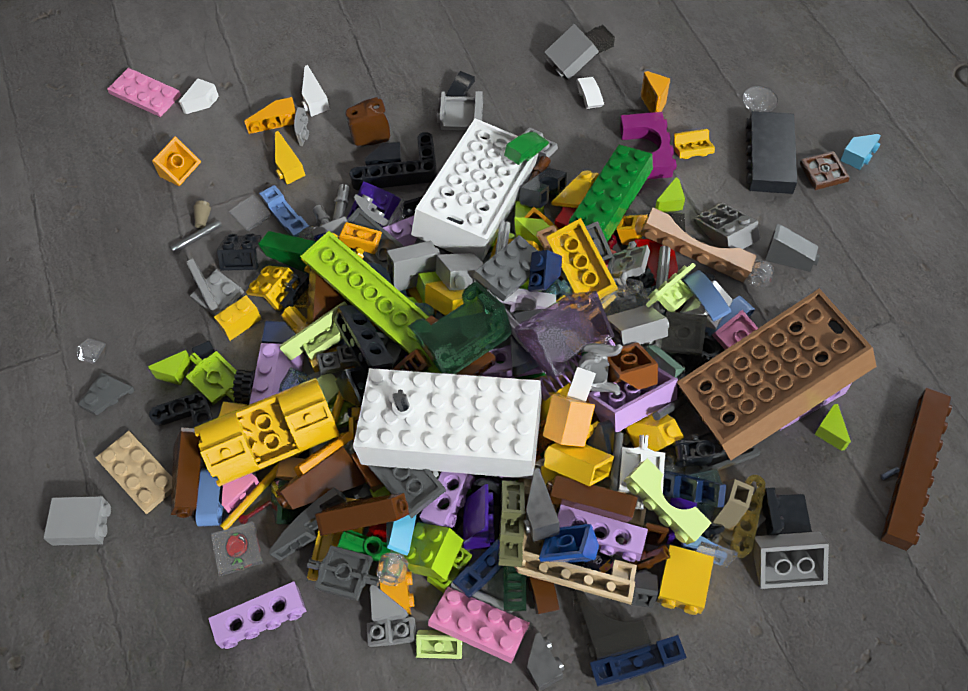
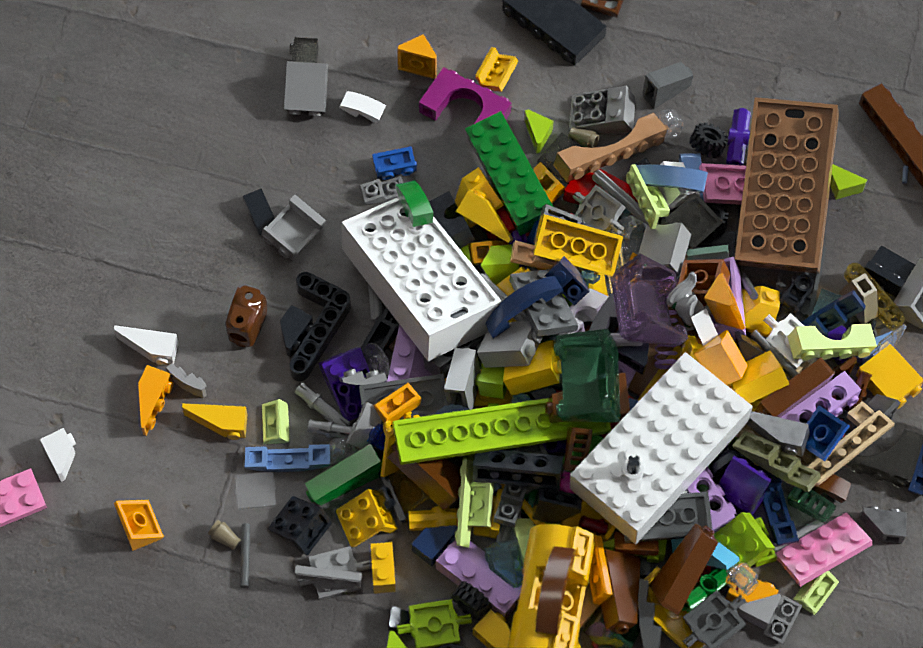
camera: 60 degrees left, 5 degrees up
(255, 413) = (553, 590): none -> reddish brown slope
(310, 193) = (275, 422): none -> yellowish green slope
(514, 254) = (519, 301): none -> dark blue slope
(562, 198) = (481, 211): none -> yellow slope
(563, 134) = (394, 162): none -> blue bracket
(620, 387) = (723, 304): none -> light orange slope
(694, 229) = (584, 137): none -> dark tan cone
(769, 304) = (708, 140): none -> black tyre

